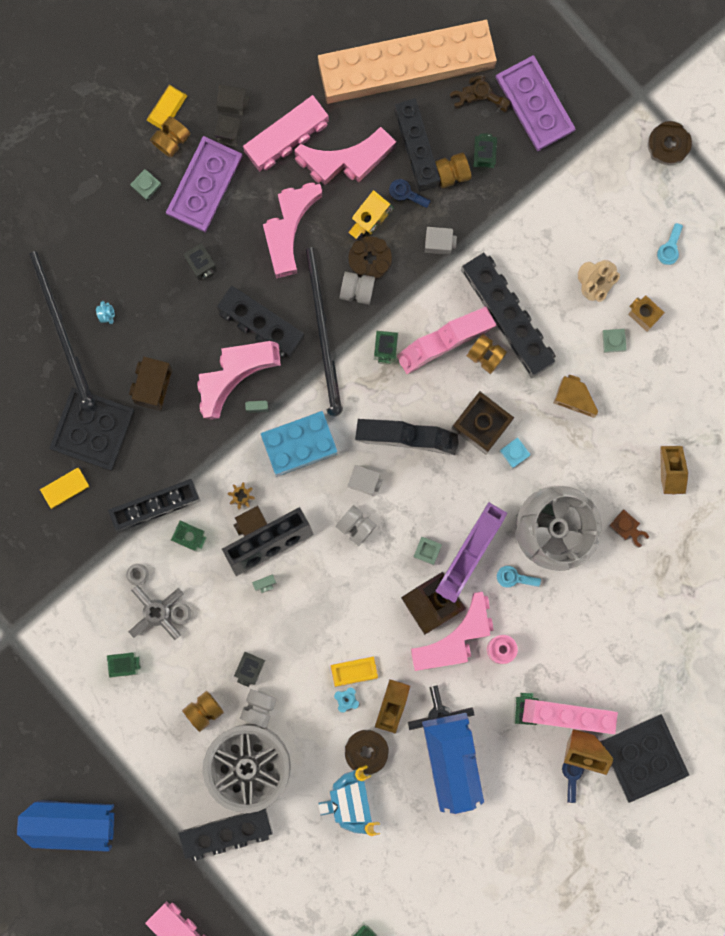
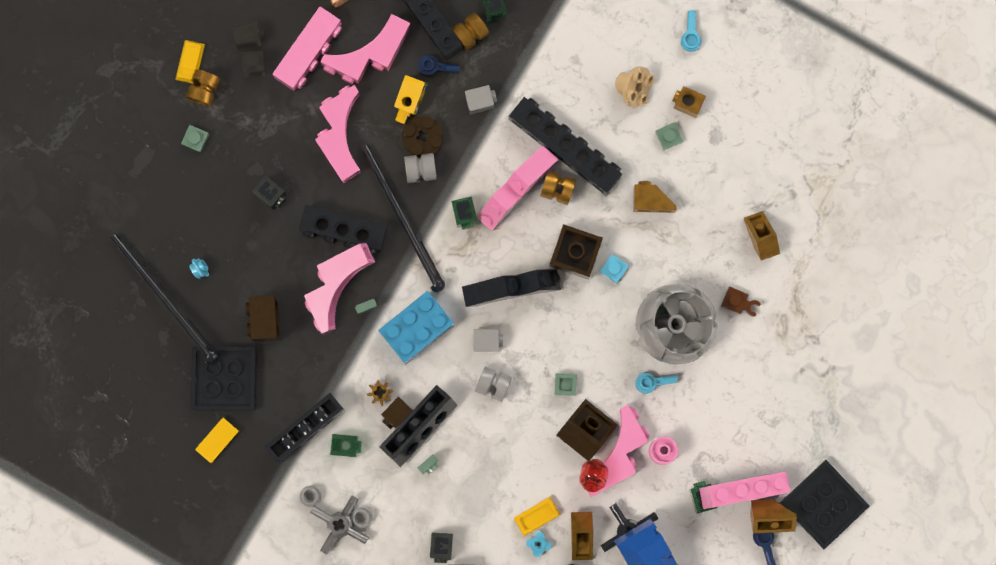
camera: 15 degrees left, 0 degrees up
(204, 184) = (248, 120): medium lavender plate -> none
(424, 650) = (593, 475): none -> clear red head
(471, 552) = (605, 372): medium lavender arch -> none

